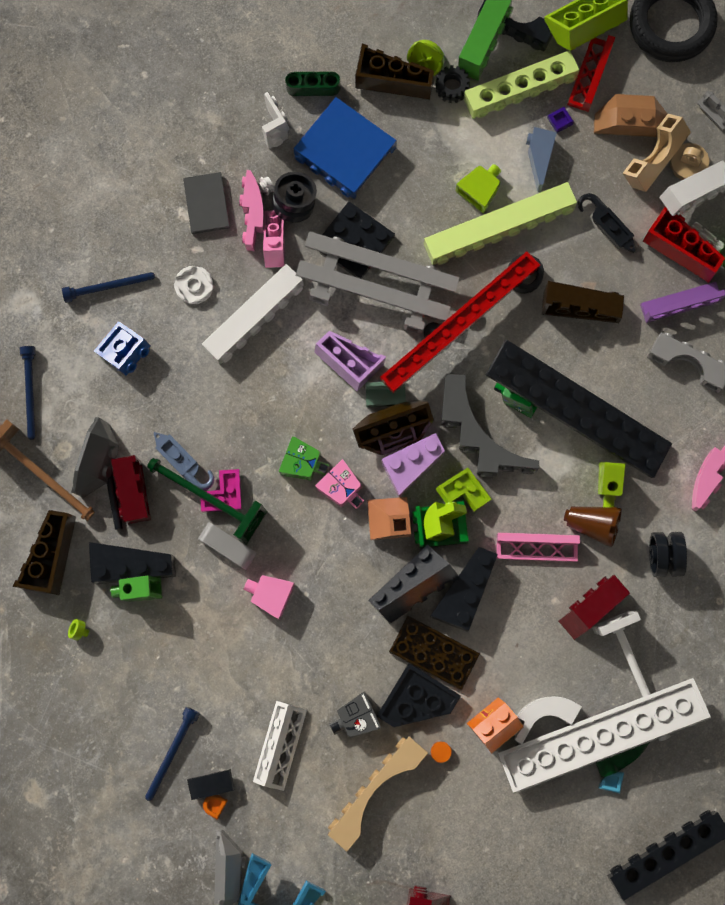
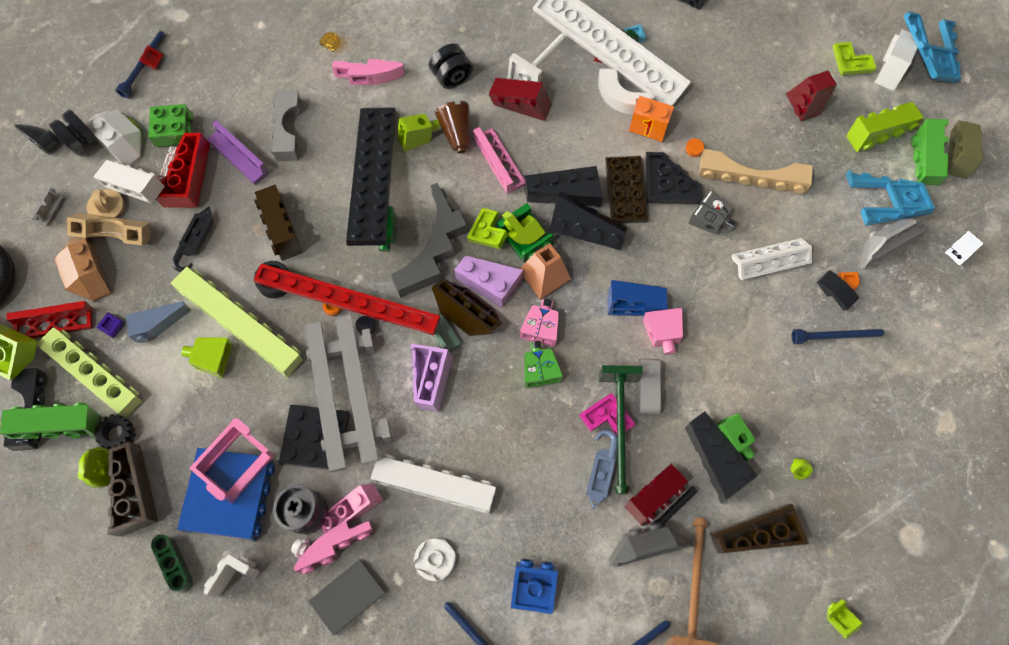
camera: 125 degrees left, 10 degrees down
(312, 585) = (635, 299): none -> blue wedge
(347, 136) = (214, 452): none -> bright pink piece

